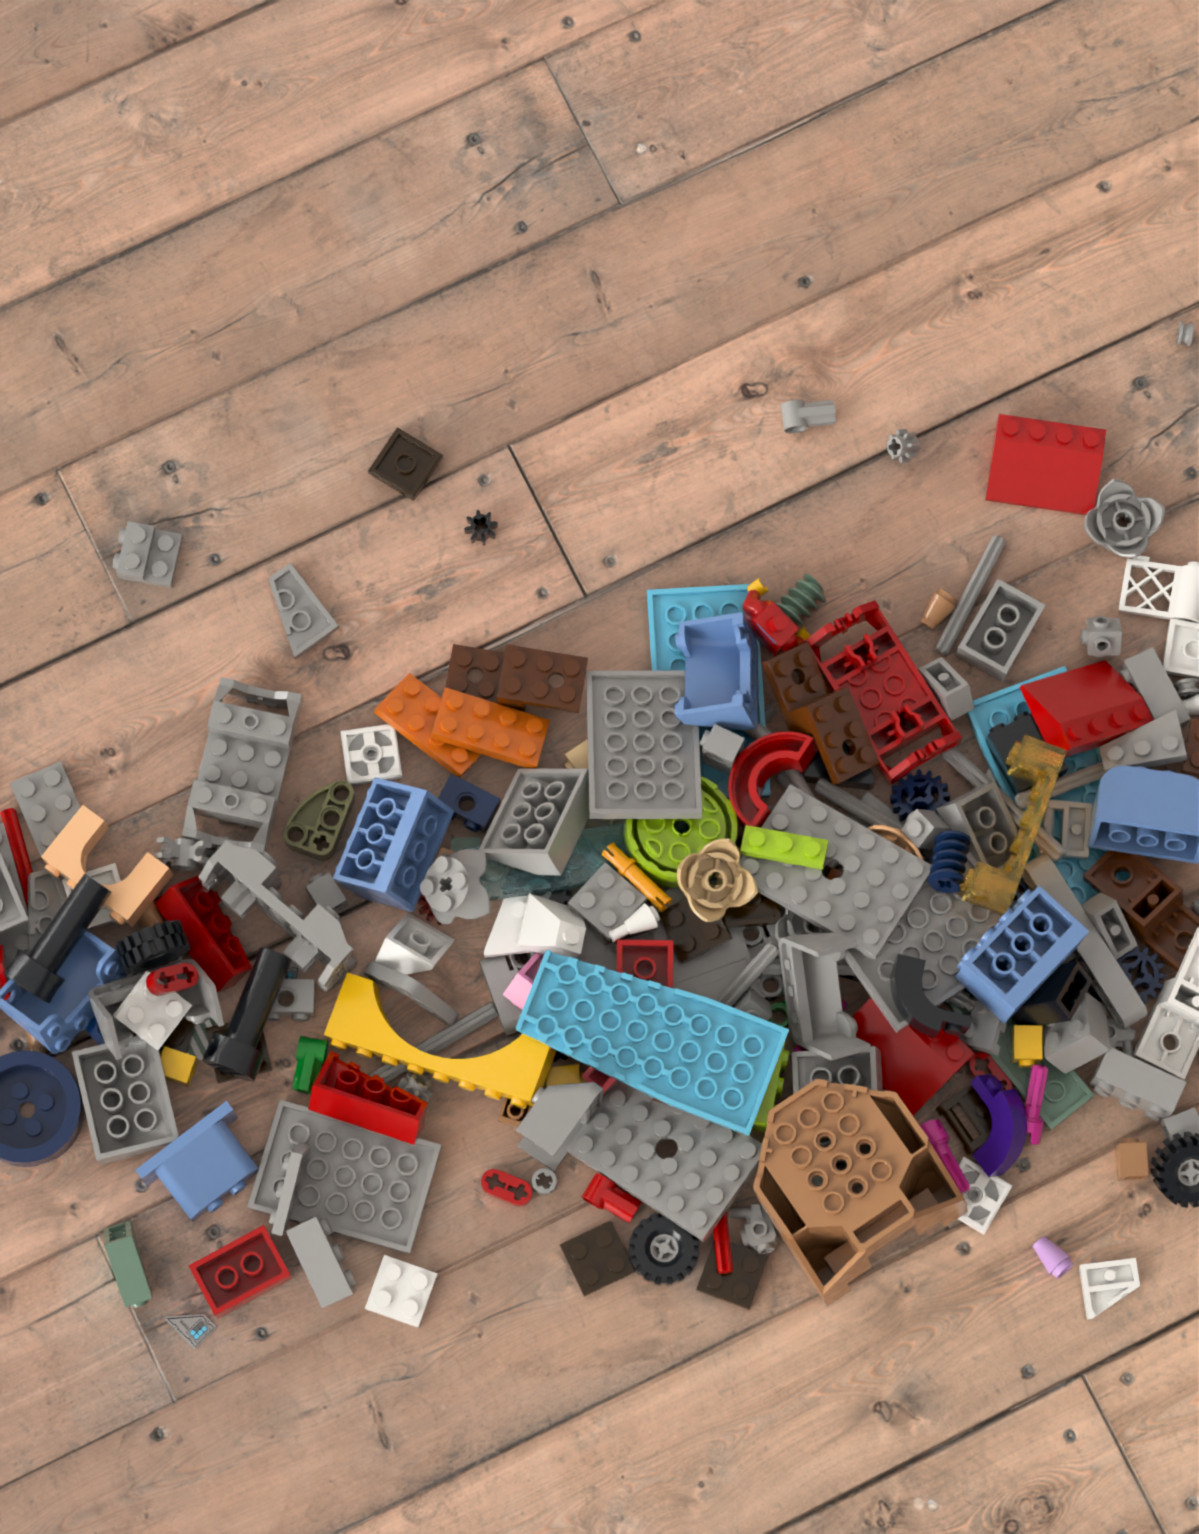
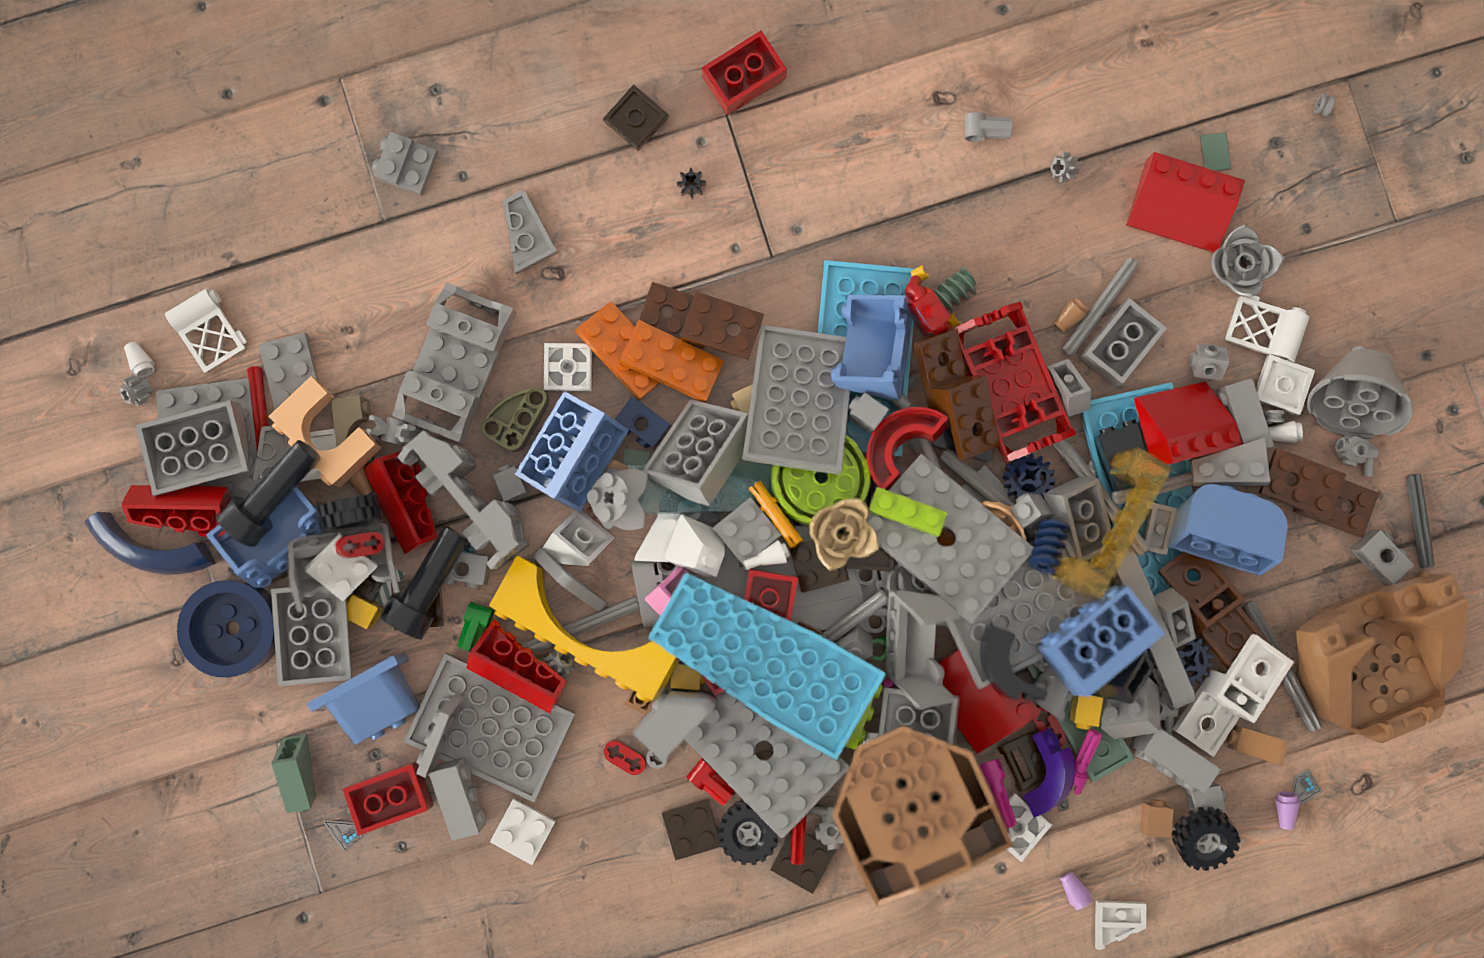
camera: 10 degrees right, 10 degrees up
(128, 844) = (349, 415): none -> dark tan arch
(521, 396) = (744, 72): none -> red brick
(1073, 403) = (1215, 151): none -> sand green sticker

